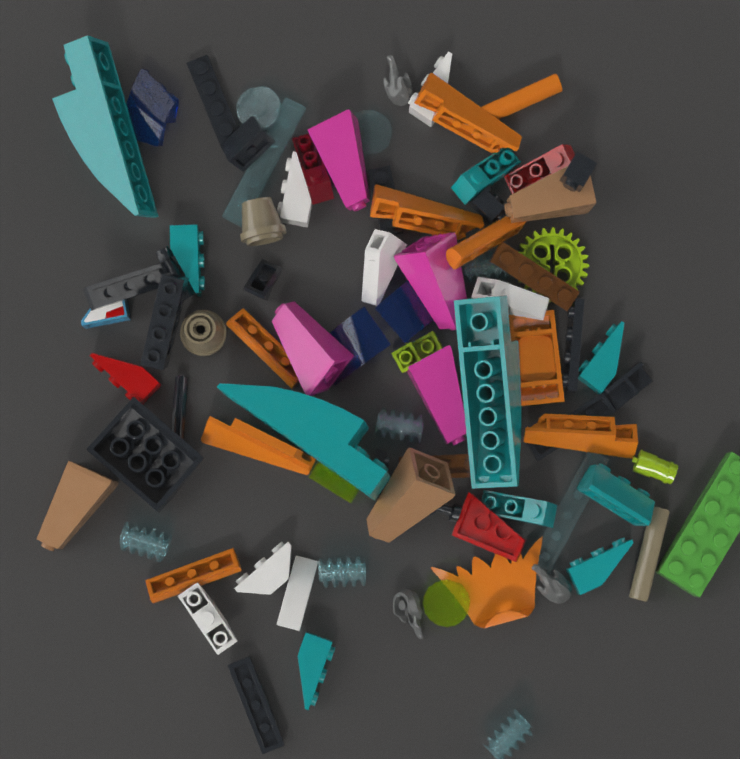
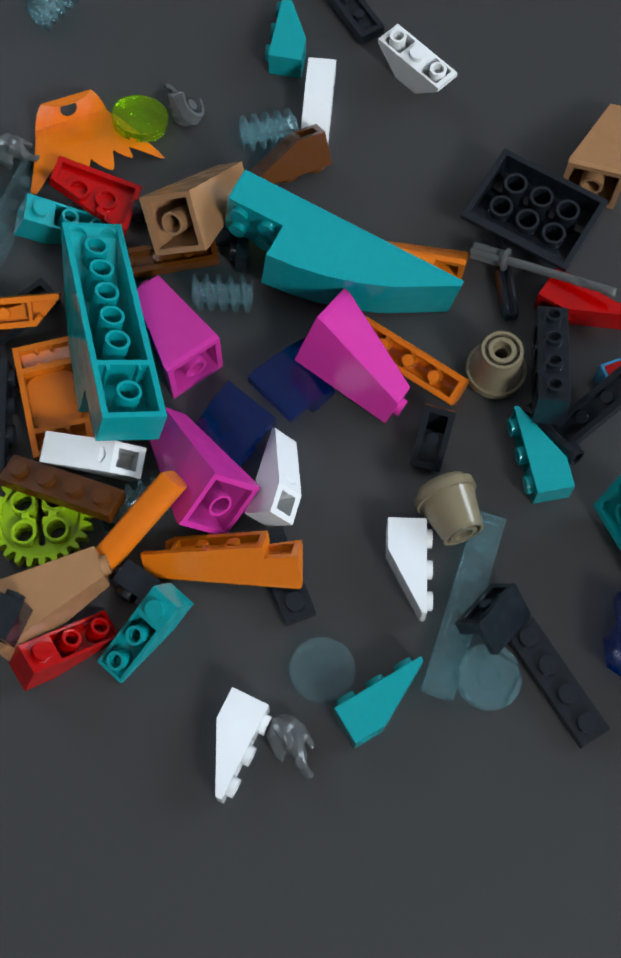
camera: 170 degrees right, 15 degrees down
(144, 543) = (510, 129): clear light blue piece -> none
(178, 419) = (502, 258): none -> dark grey piece
(201, 571) = (442, 106): orange brick -> none
(269, 573) = (357, 117): white slope -> none
(313, 169) = (394, 603): dark red slope -> none
(329, 539) = (295, 155): none -> reddish brown slope
(341, 96) = (369, 711): none -> teal slope
(342, 154) = (354, 615): dark pink slope -> none
(416, 350) = (200, 393): lime slope -> none
(465, 117) = (183, 700): orange wedge -> none
(524, 97) = (109, 748): orange brick -> none

